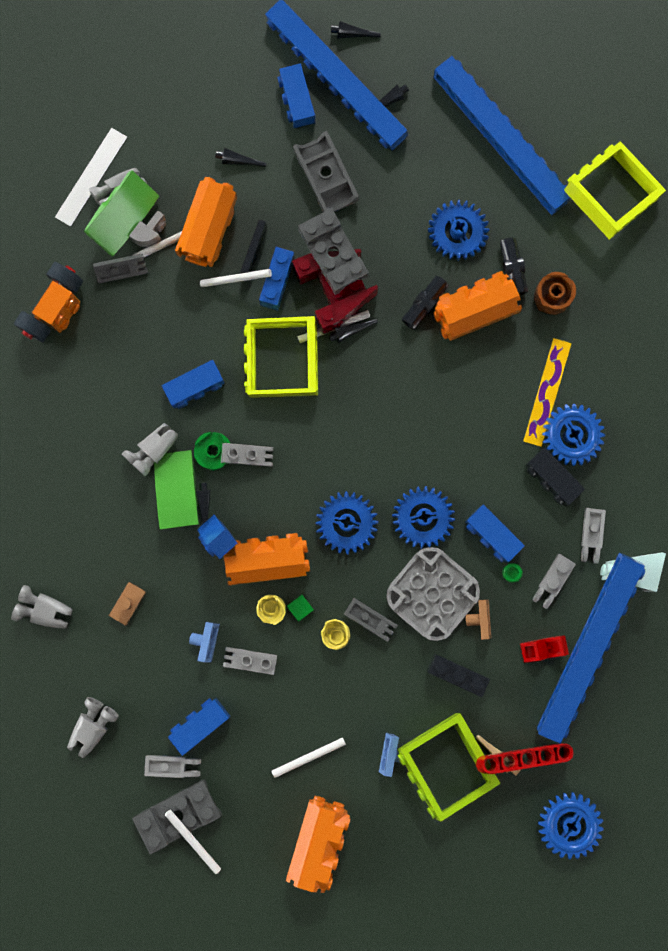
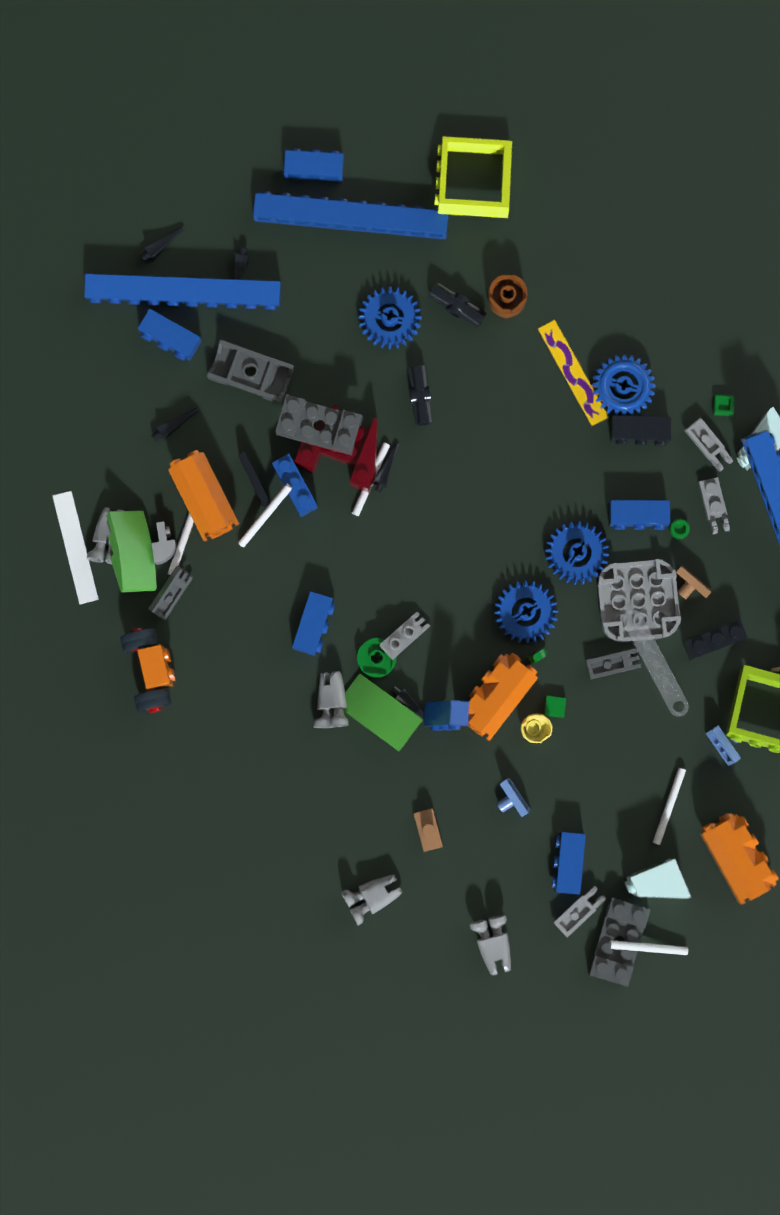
camera: 50 degrees left, 0 degrees up
(244, 803) = (658, 881): none -> light aqua slope
(250, 351) = (327, 557): neon yellow window -> none
(251, 660) = (558, 780): light grey hinge -> none
(324, 560) = (538, 655): none -> green tile
(335, 634) = (600, 699): light yellow hair -> none
(399, 648) = (655, 663): none -> clear plate
(477, 307) = (462, 361): orange brick -> none
(511, 77) = (313, 165): none -> blue brick
(544, 648) = (756, 560): red slope -> none
(631, 518) = (723, 405): none -> green tile

